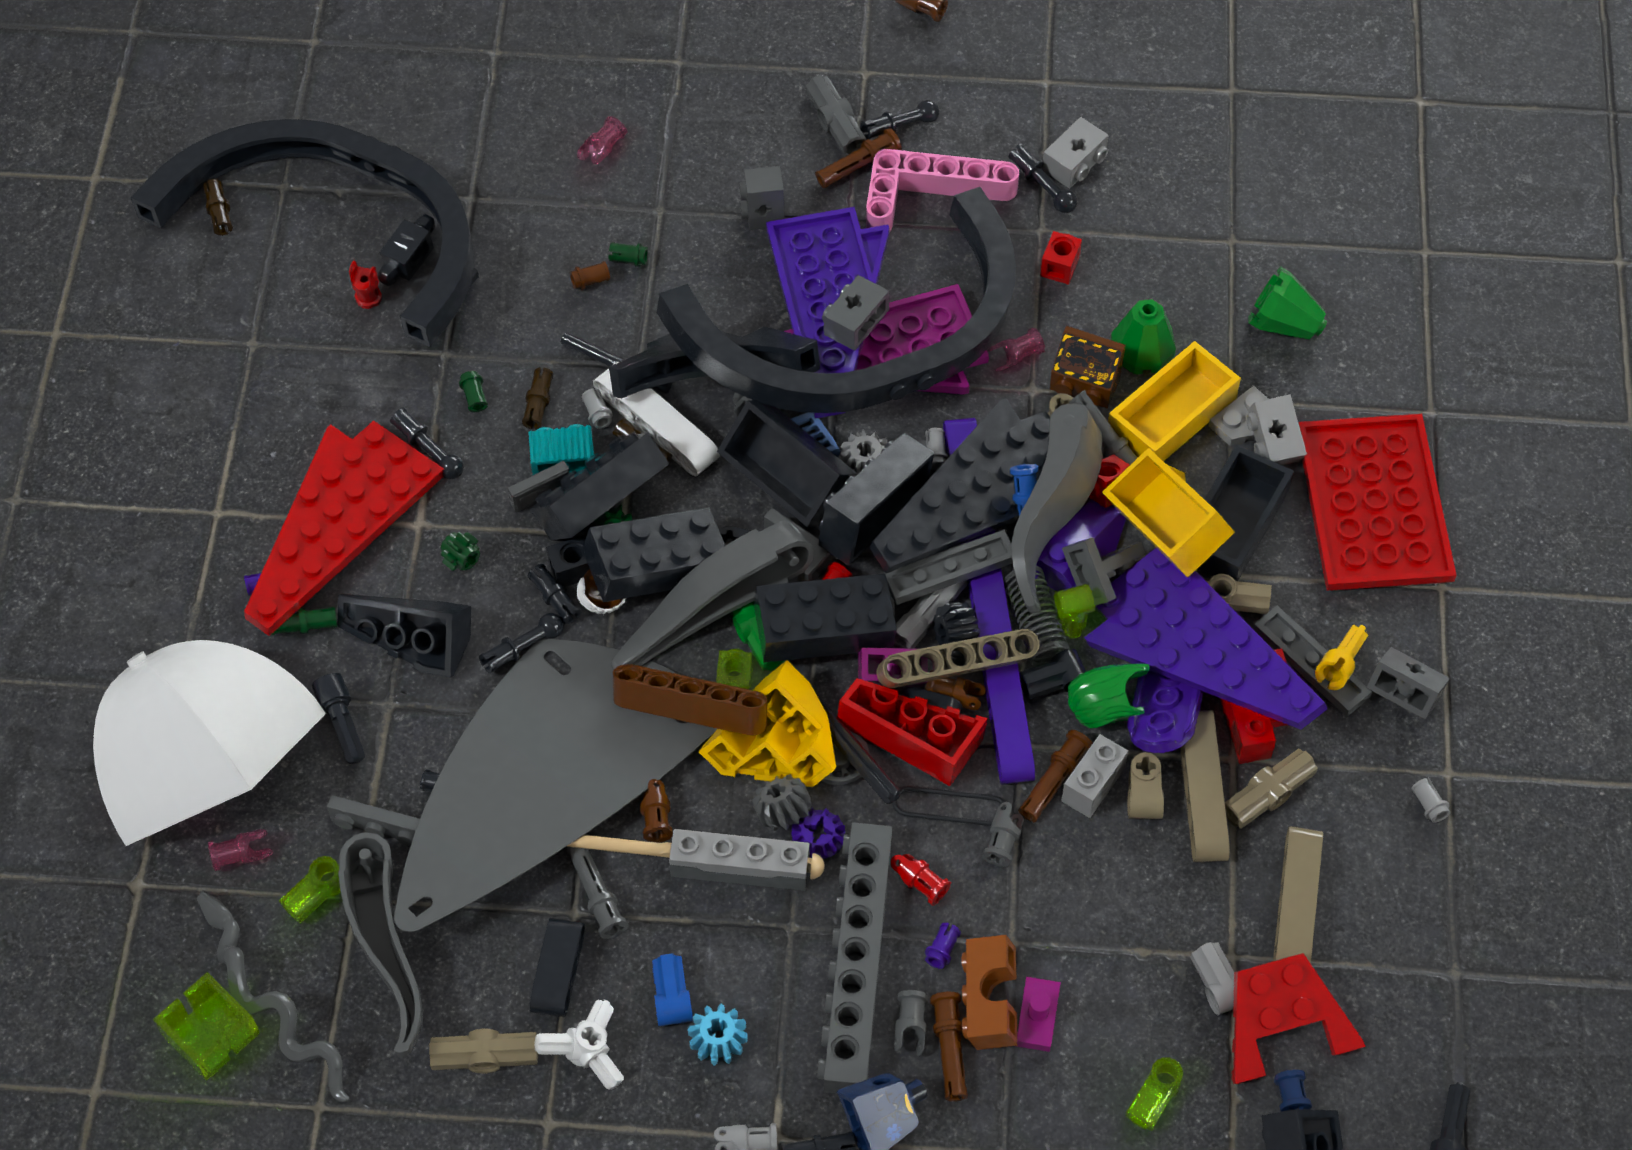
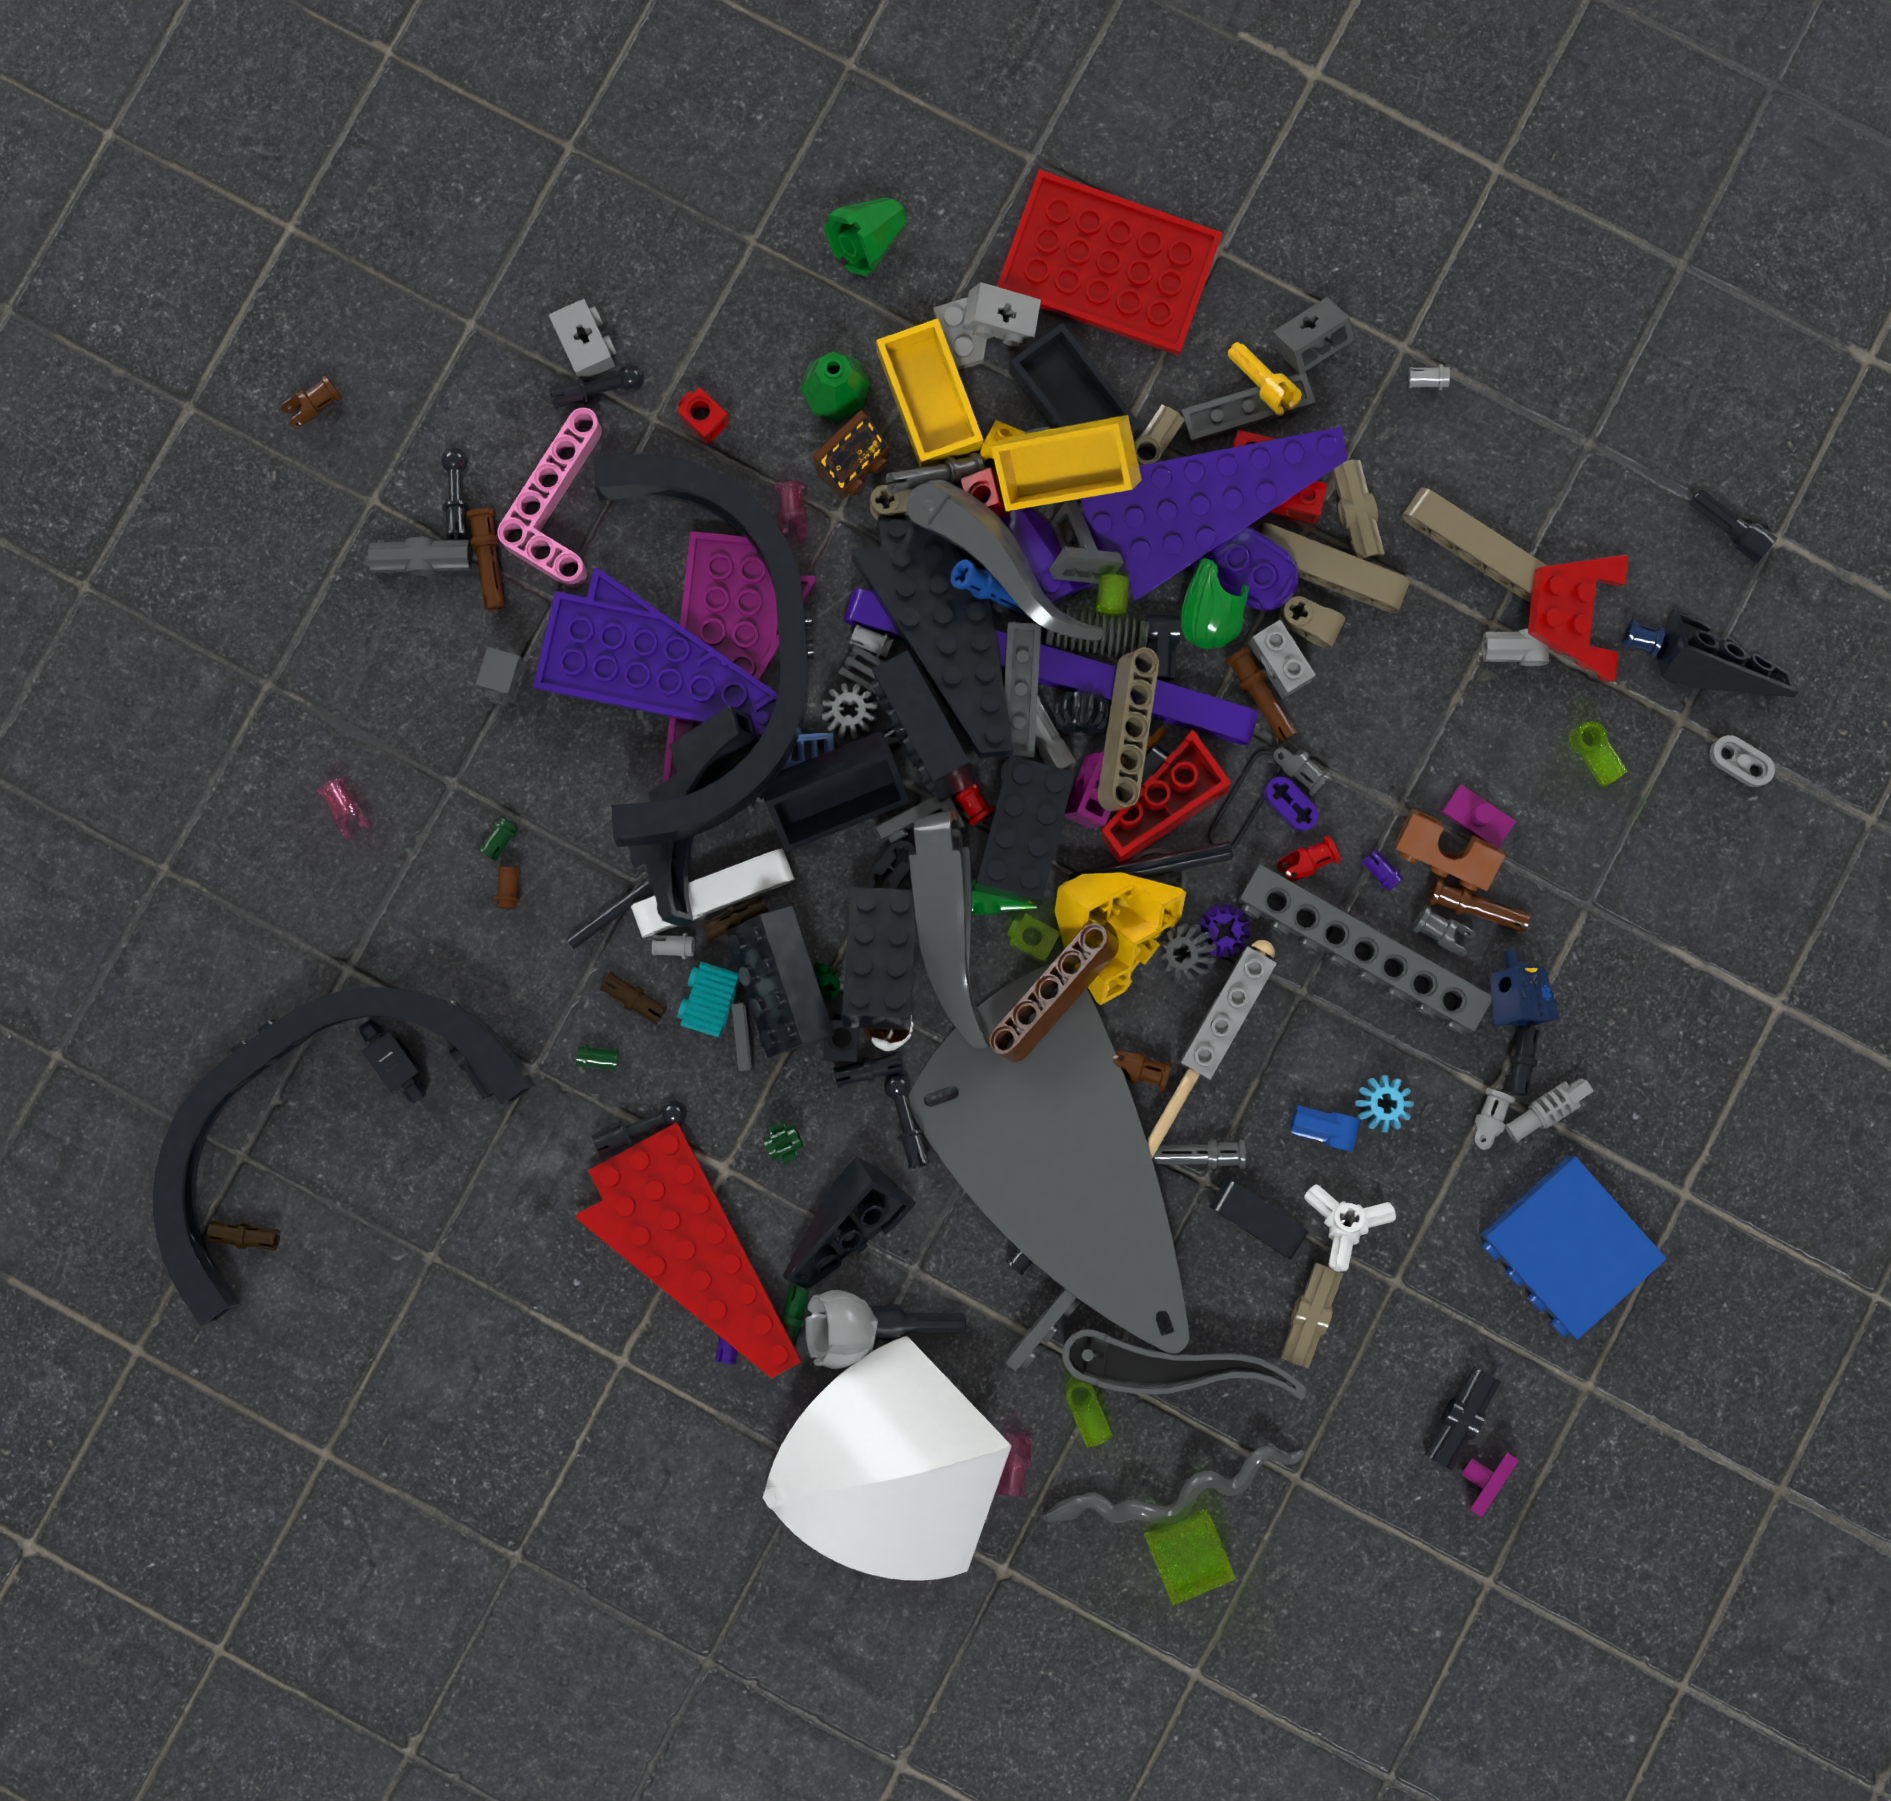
camera: 70 degrees left, 25 degrees up
(310, 649) = (839, 1329): none -> light grey piece
(365, 284) = (431, 1123): red piece -> none
(855, 312) = (694, 631): dark grey brick -> none
(958, 838) = (1285, 809): none -> dark purple beam

